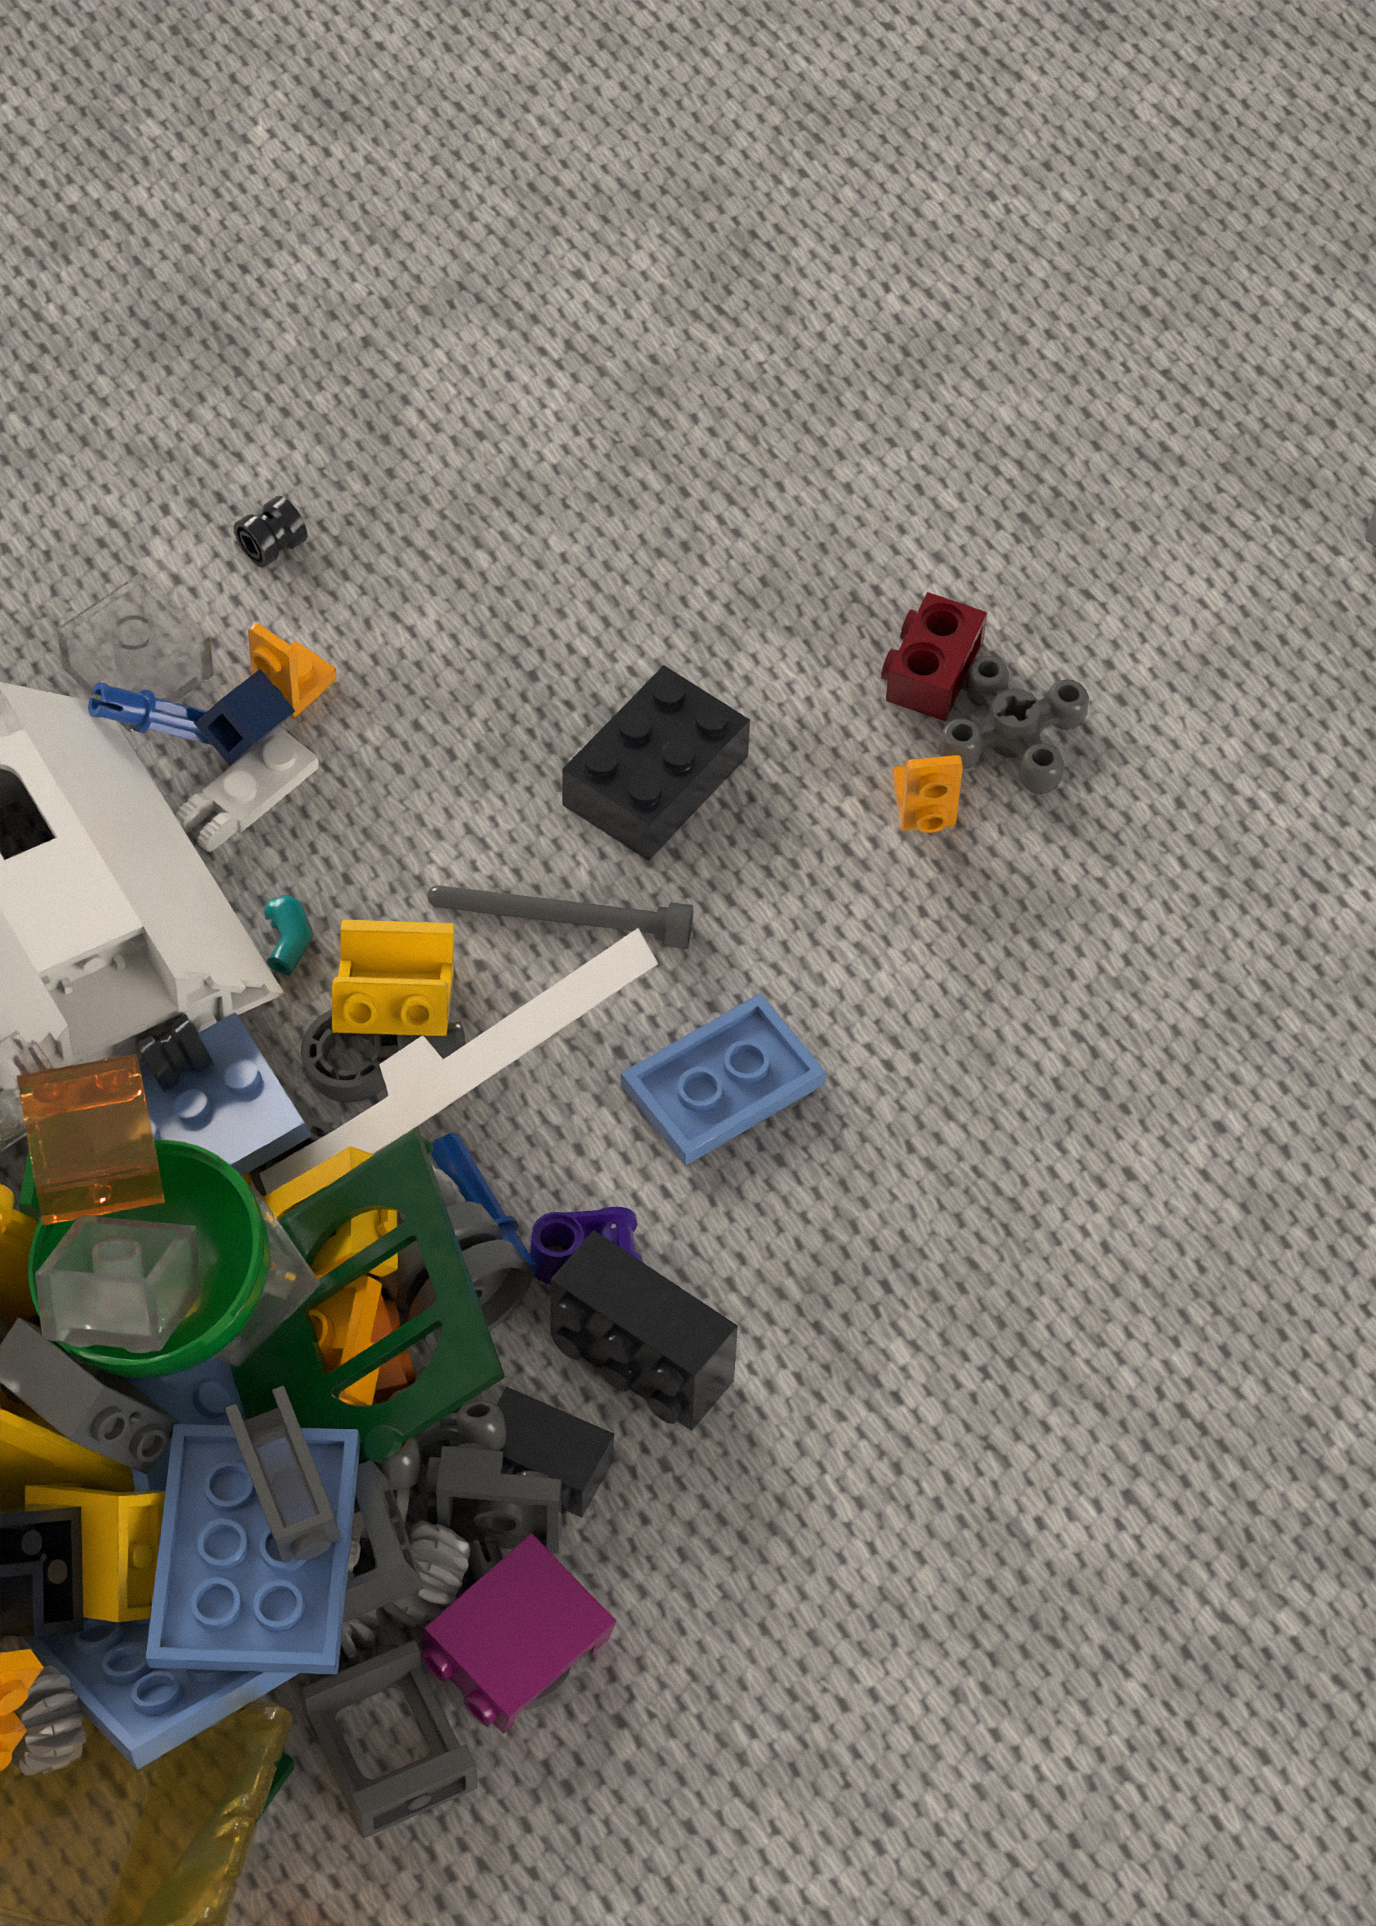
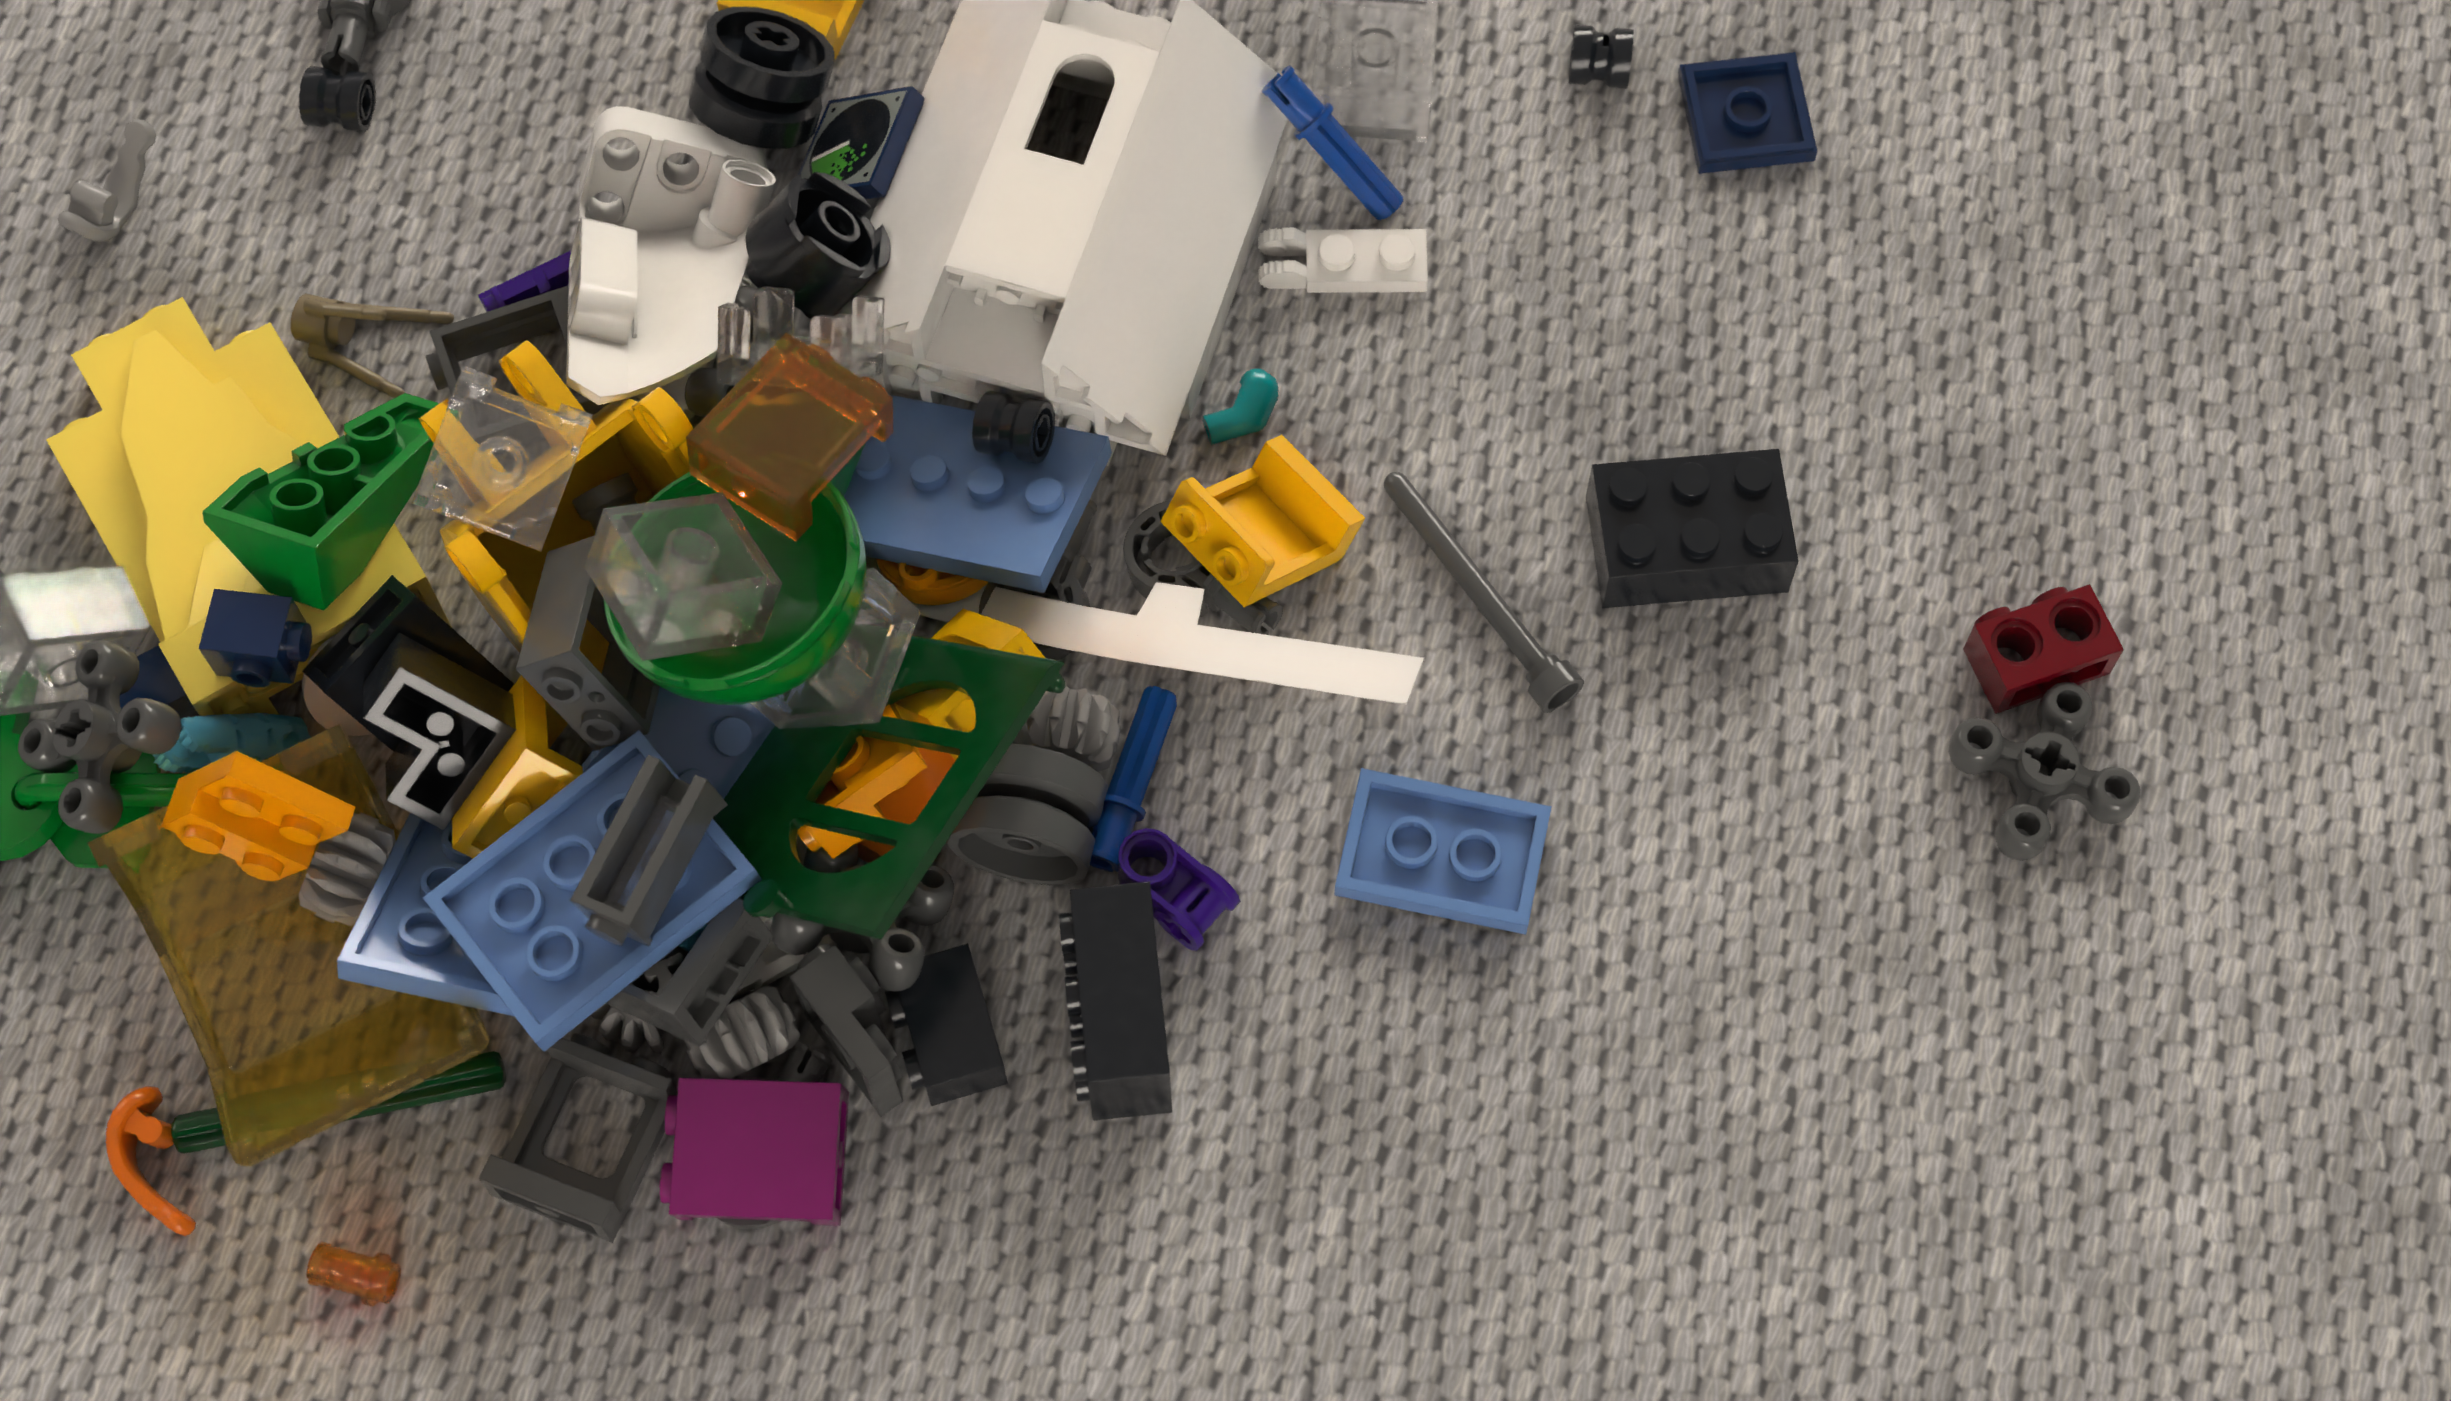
camera: 50 degrees right, 10 degrees up
(244, 717) = (1394, 195): dark blue brick -> none
(291, 668) = (1478, 197): light orange bracket -> none
(398, 494) = (1747, 113): none -> dark blue tile
(928, 792) = (1893, 762): light orange bracket -> none

